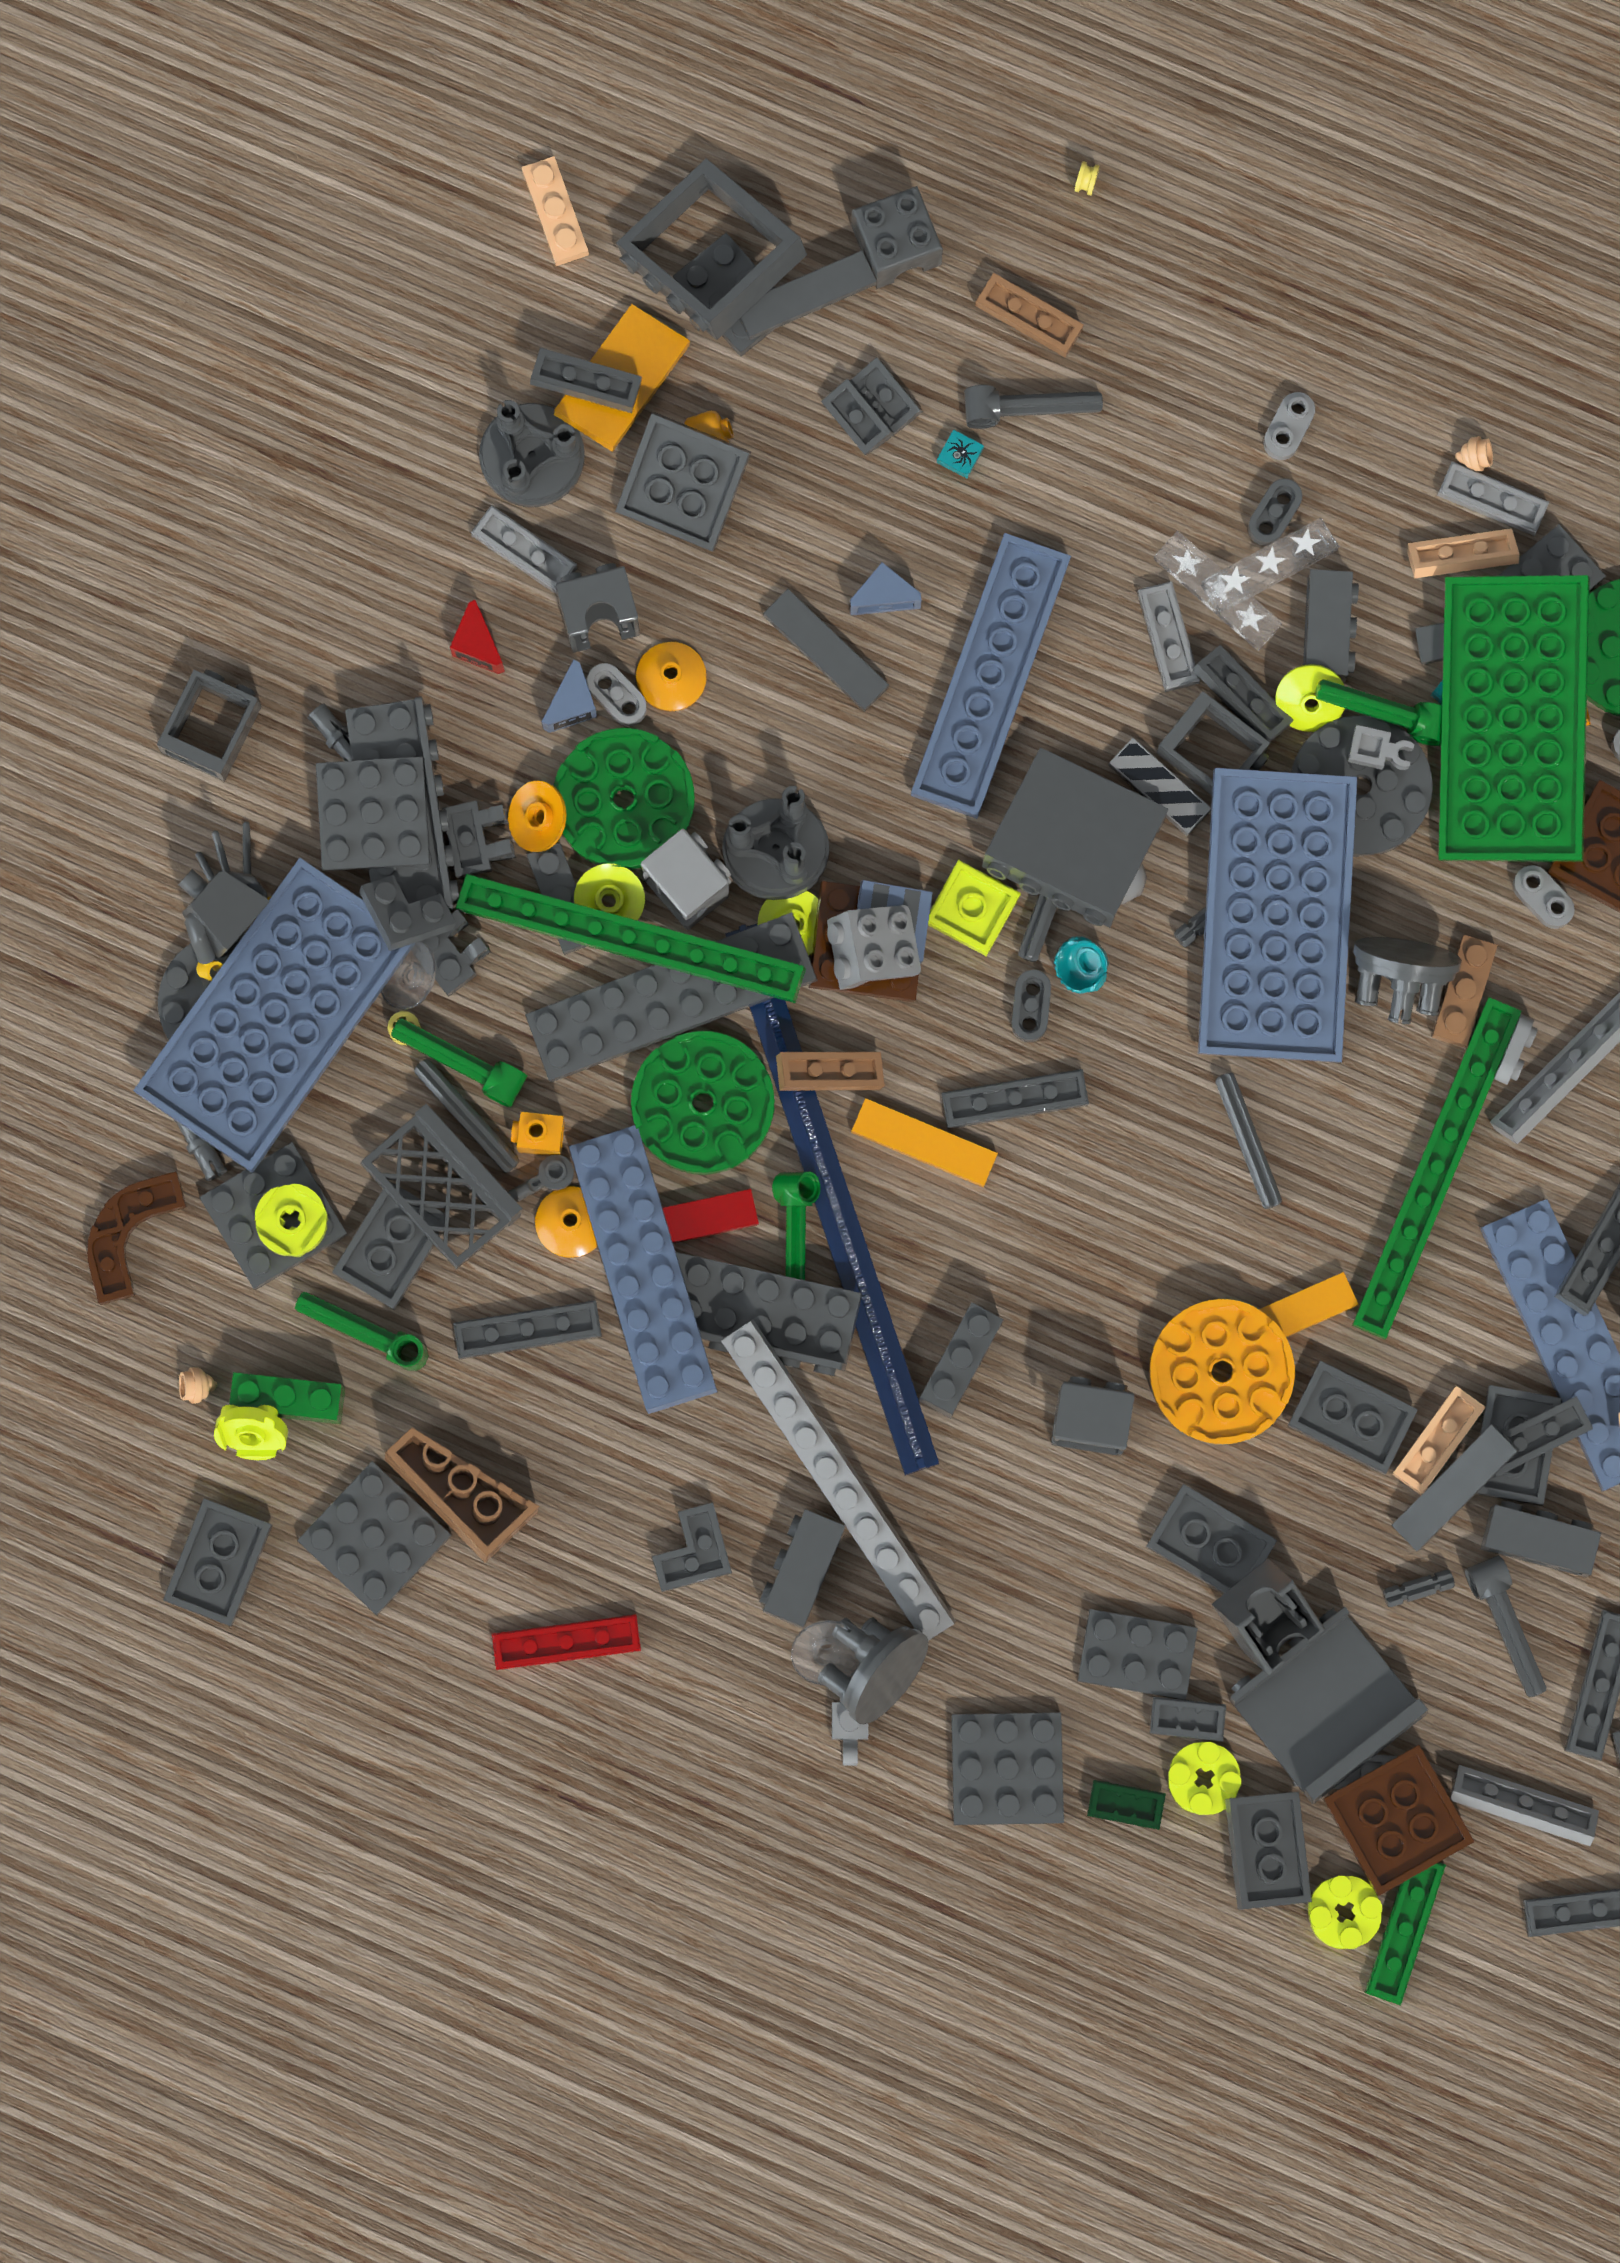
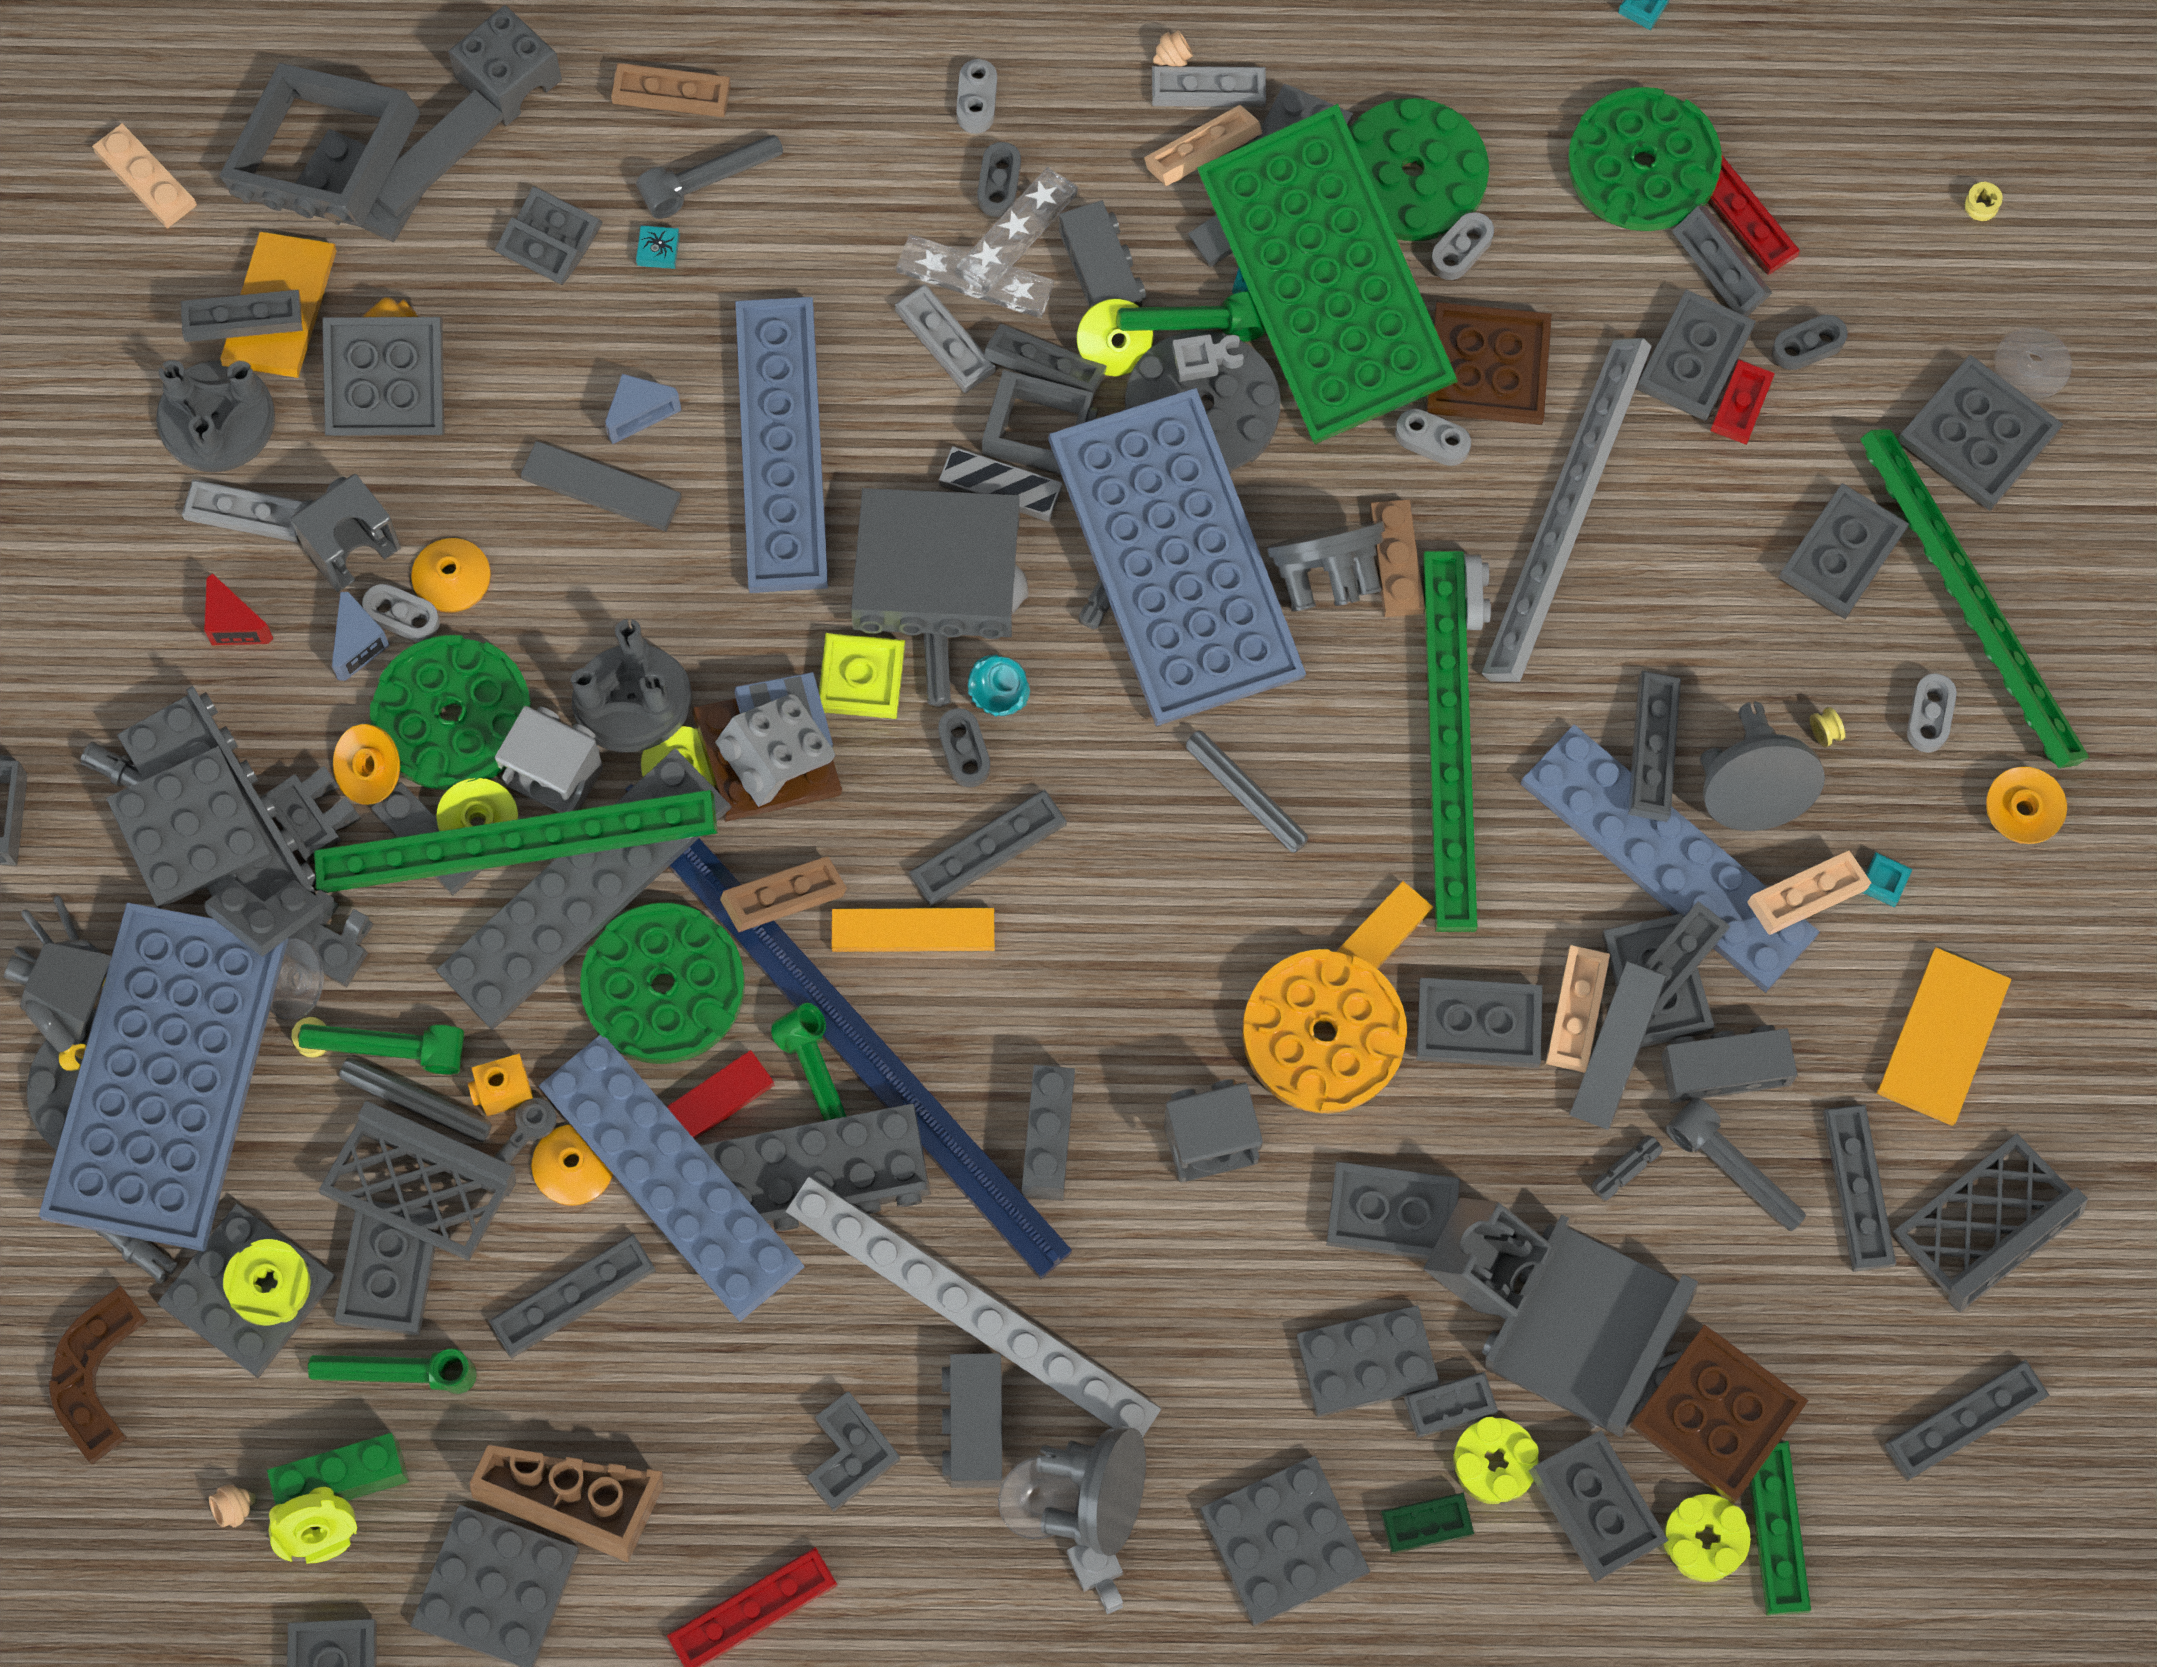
camera: 25 degrees left, 10 degrees down
(1524, 1805) = (1840, 1343): light grey plate -> none

